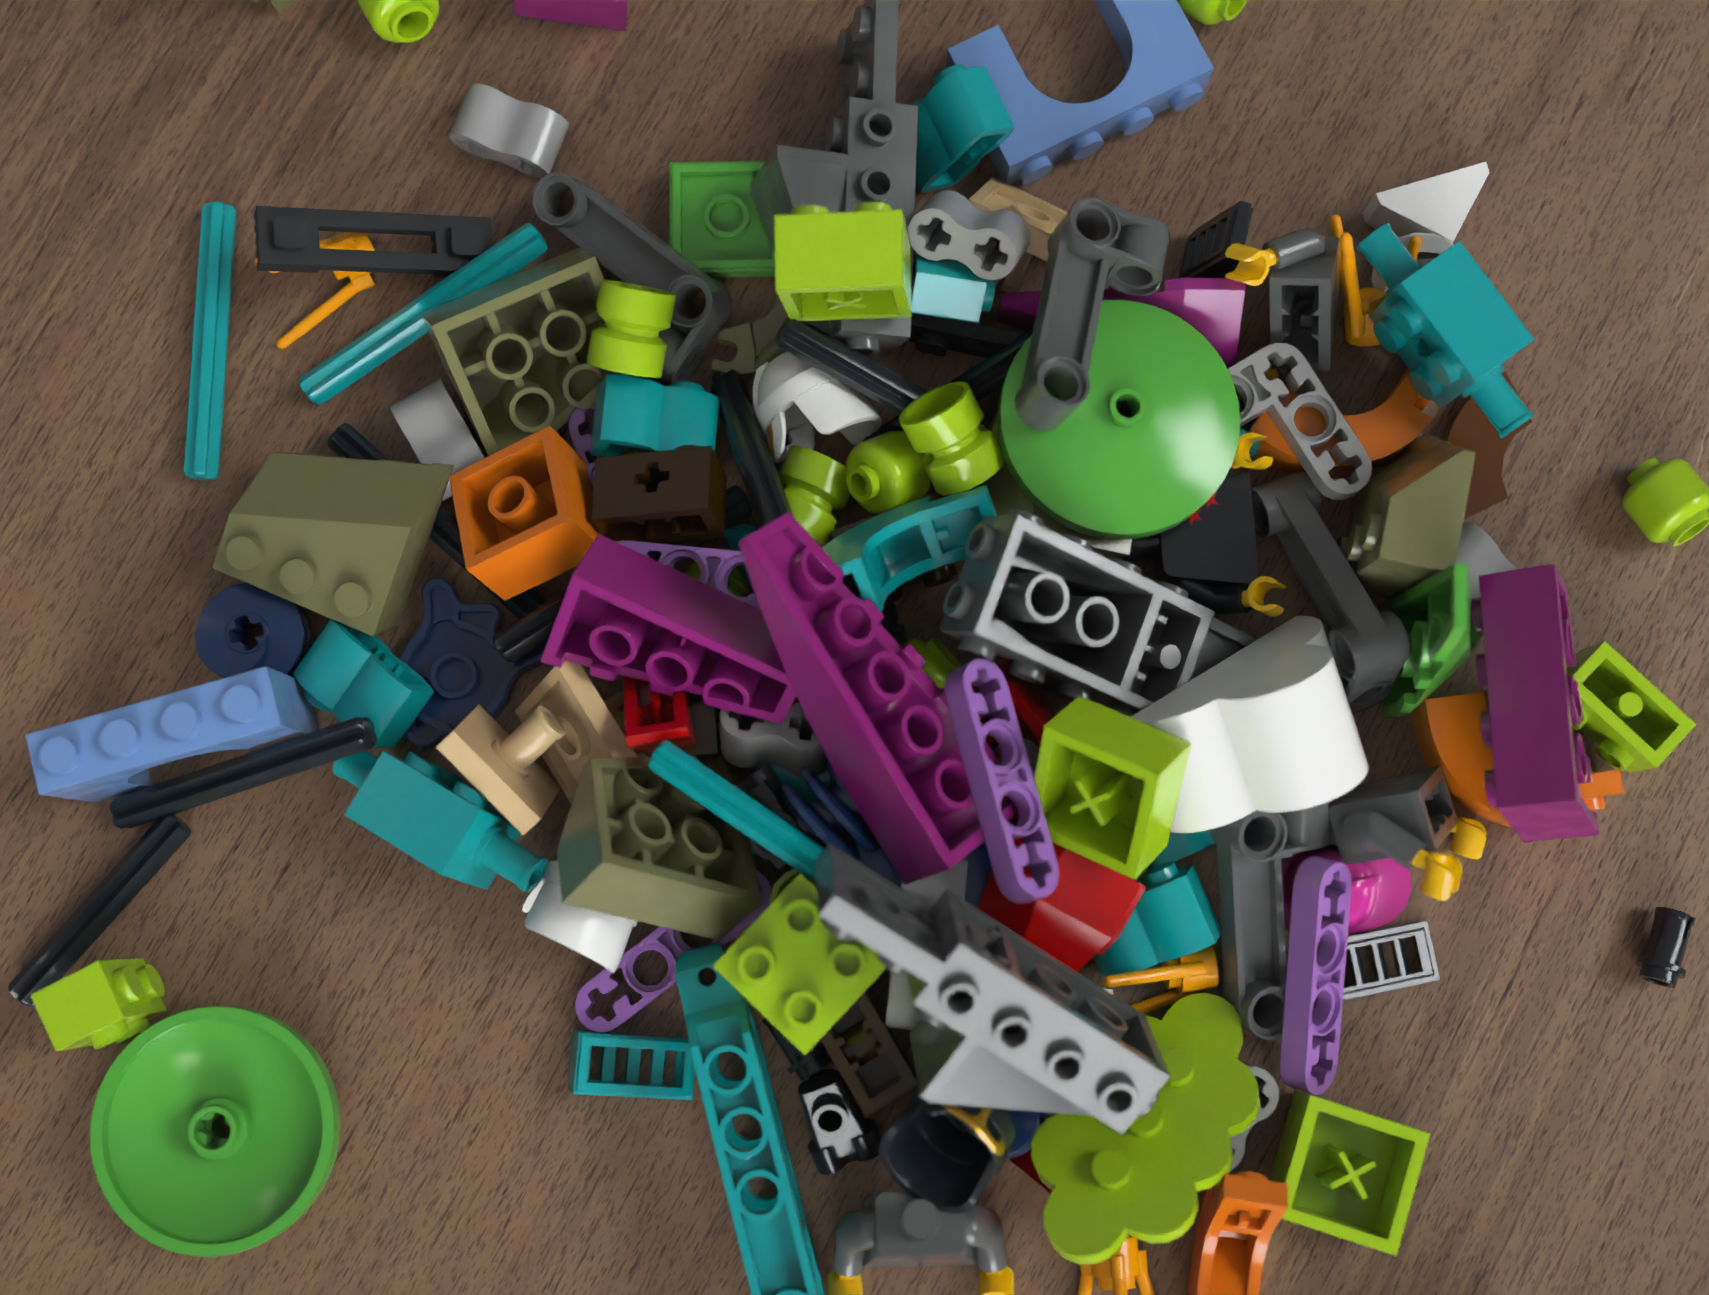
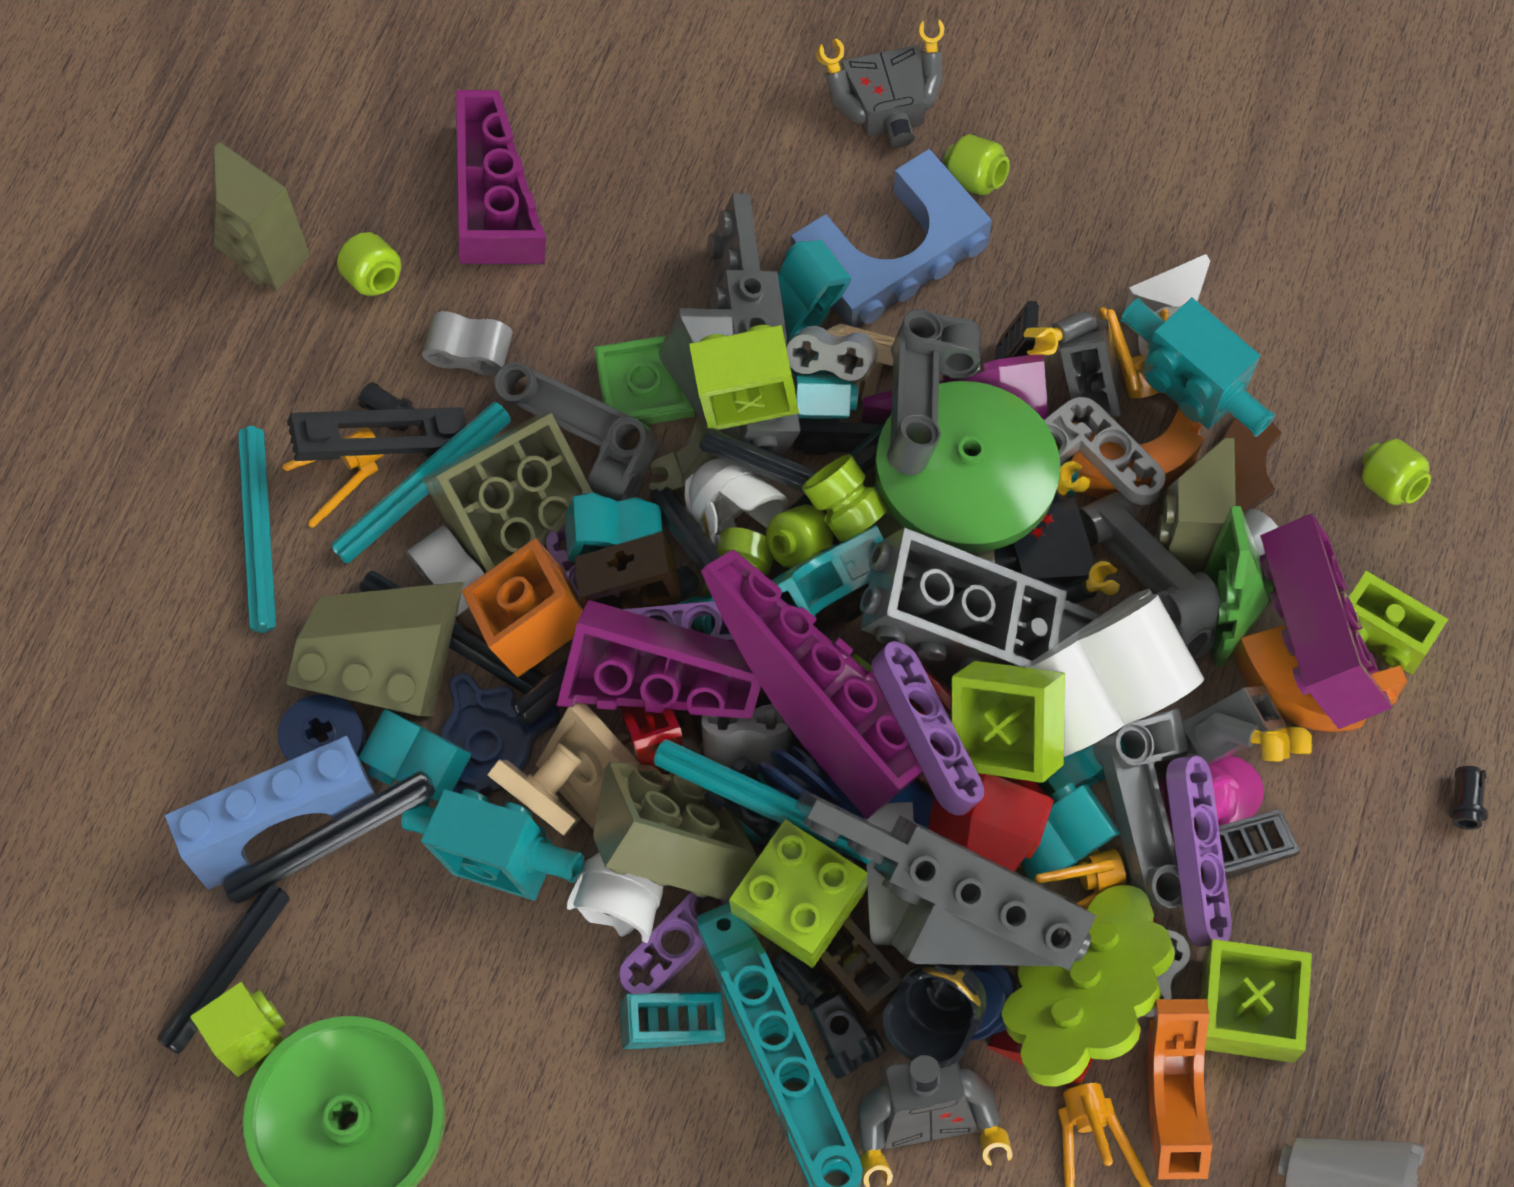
camera: 10 degrees left, 15 degrees down
(390, 194) = (376, 398): none -> black pin
(631, 329) = (587, 459): lime wheel -> none

